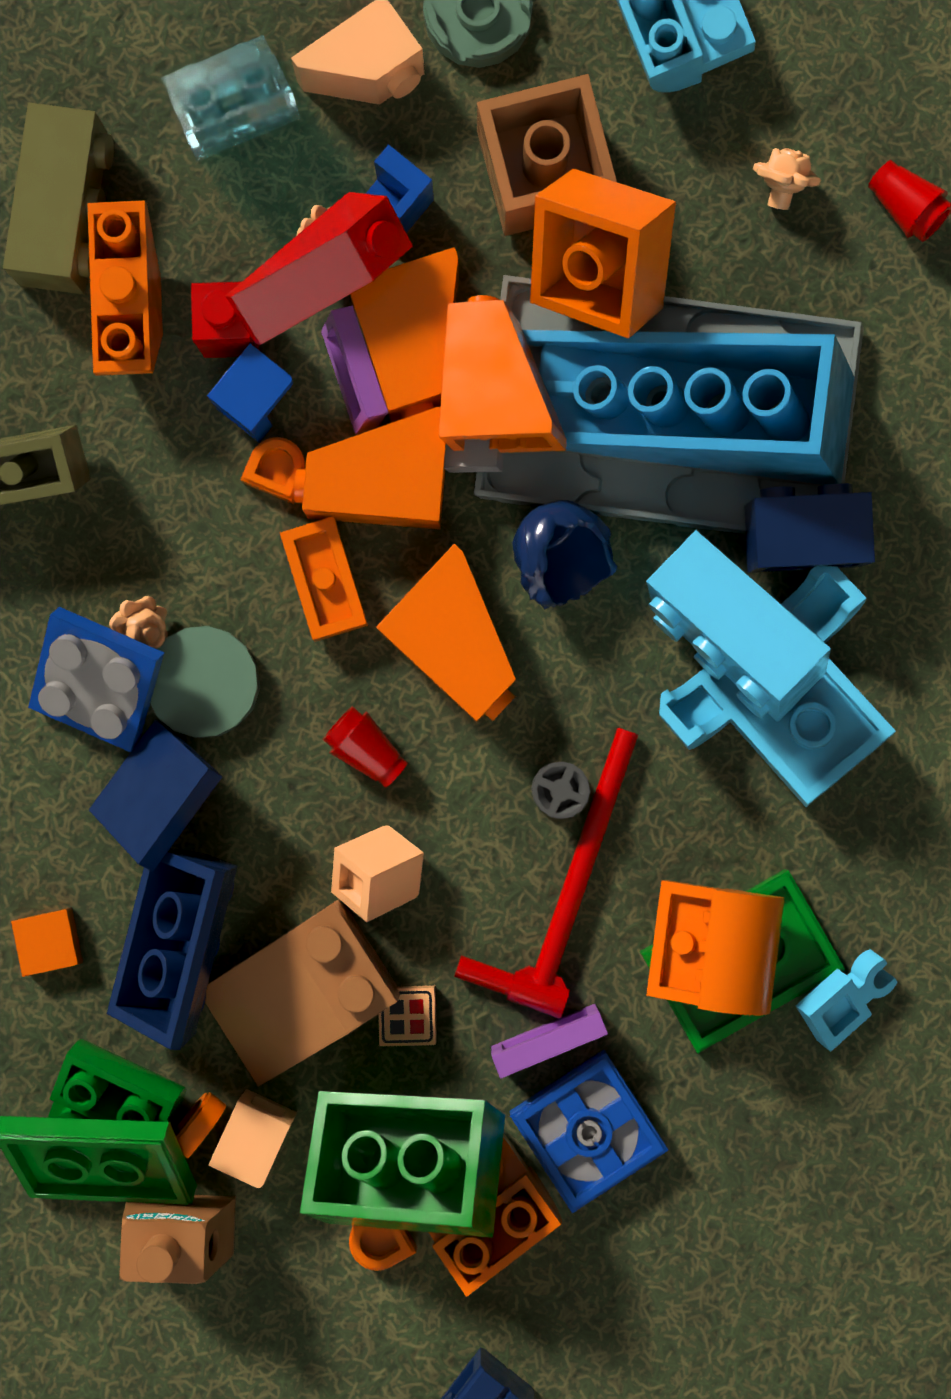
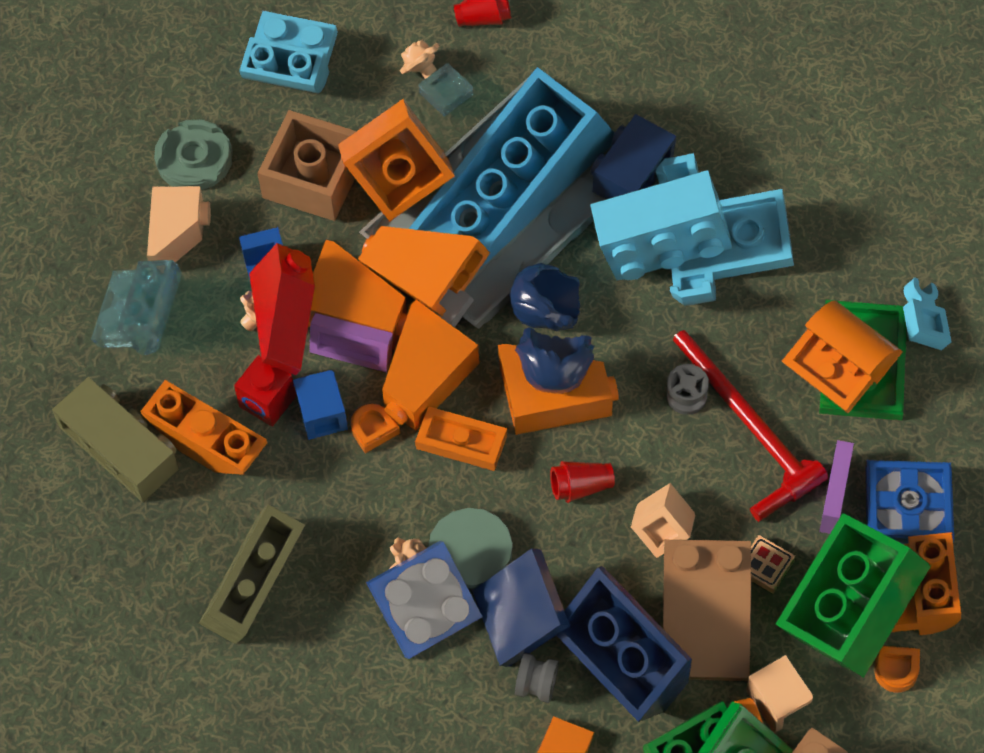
camera: 55 degrees left, 25 degrees down
(94, 863) = (536, 678): none -> dark grey wheel
(465, 628) = (554, 362): none -> dark blue hair
(766, 235) = (445, 89): none -> clear light blue plate

